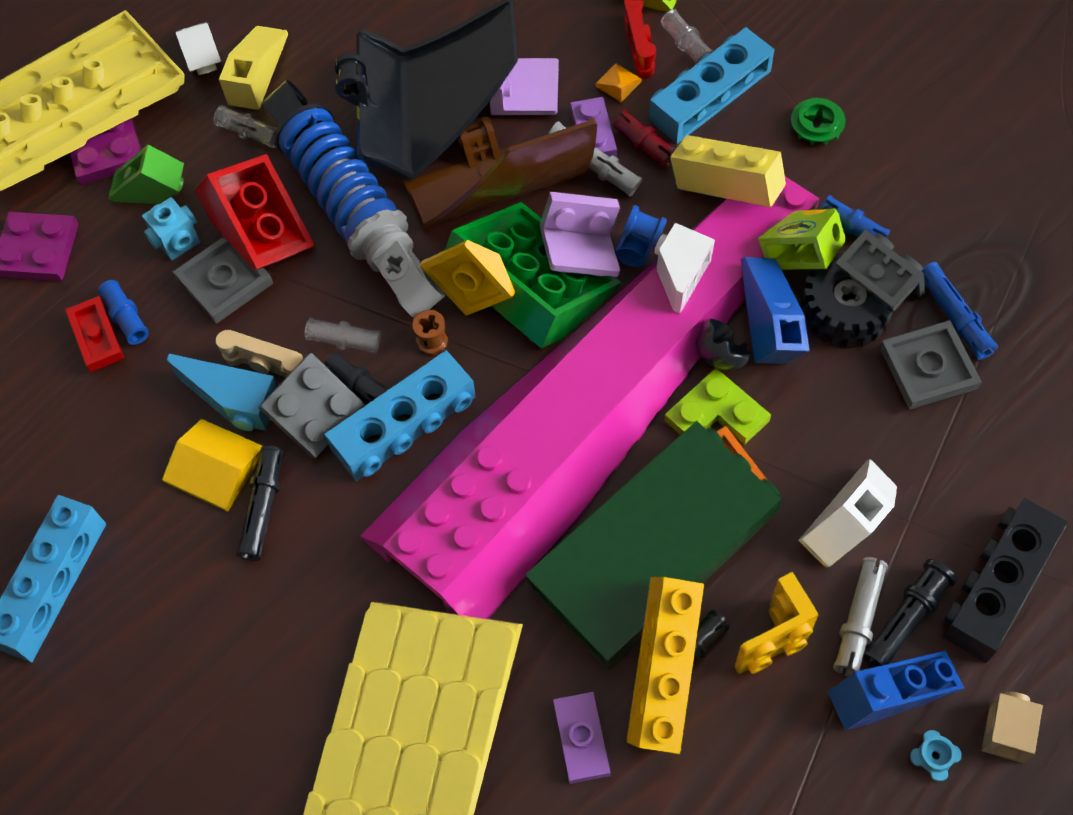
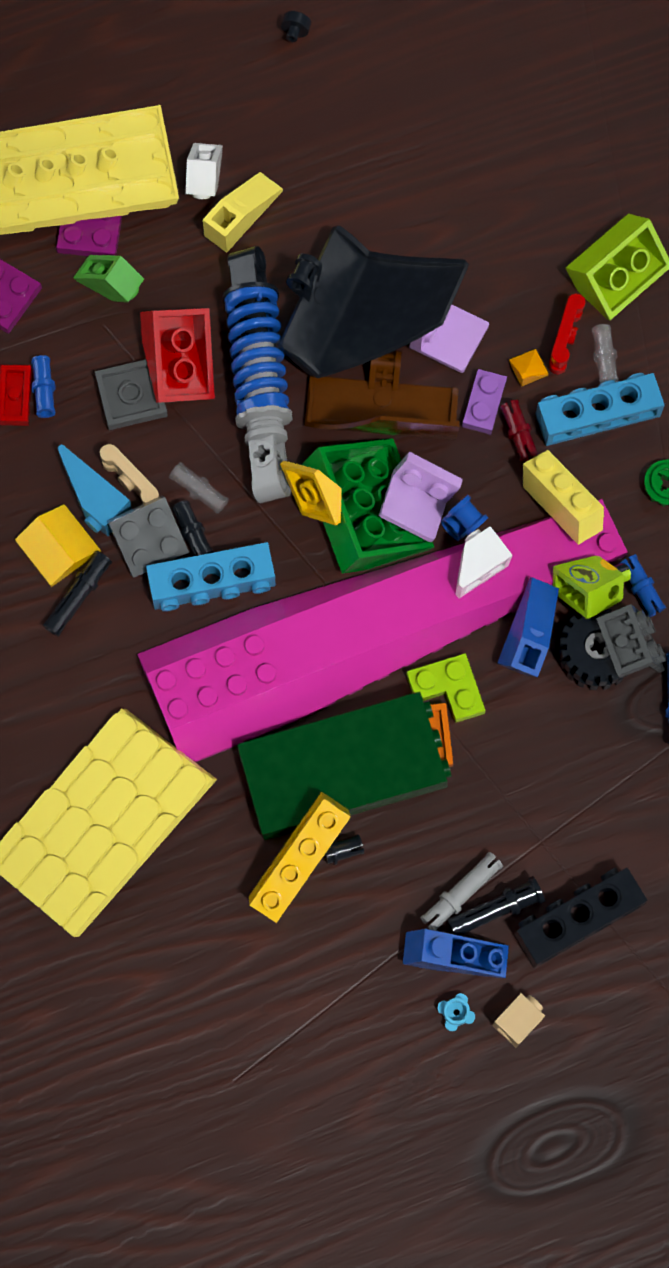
camera: 20 degrees right, 10 degrees up
(171, 228) = (109, 332): medium azure brick -> none
(230, 120) = (209, 264): clear pin -> none
(426, 331) = (265, 509): dark orange bush -> none
(581, 737) = (219, 877): medium lavender plate -> none
(610, 169) = (485, 462): light grey pin -> none
(718, 349) = (476, 639): black hair -> none
(794, 621) = (399, 881): yellow bracket -> none
(850, 515) = (499, 815): white slope -> none
(930, 364) = (628, 731): dark grey plate -> none

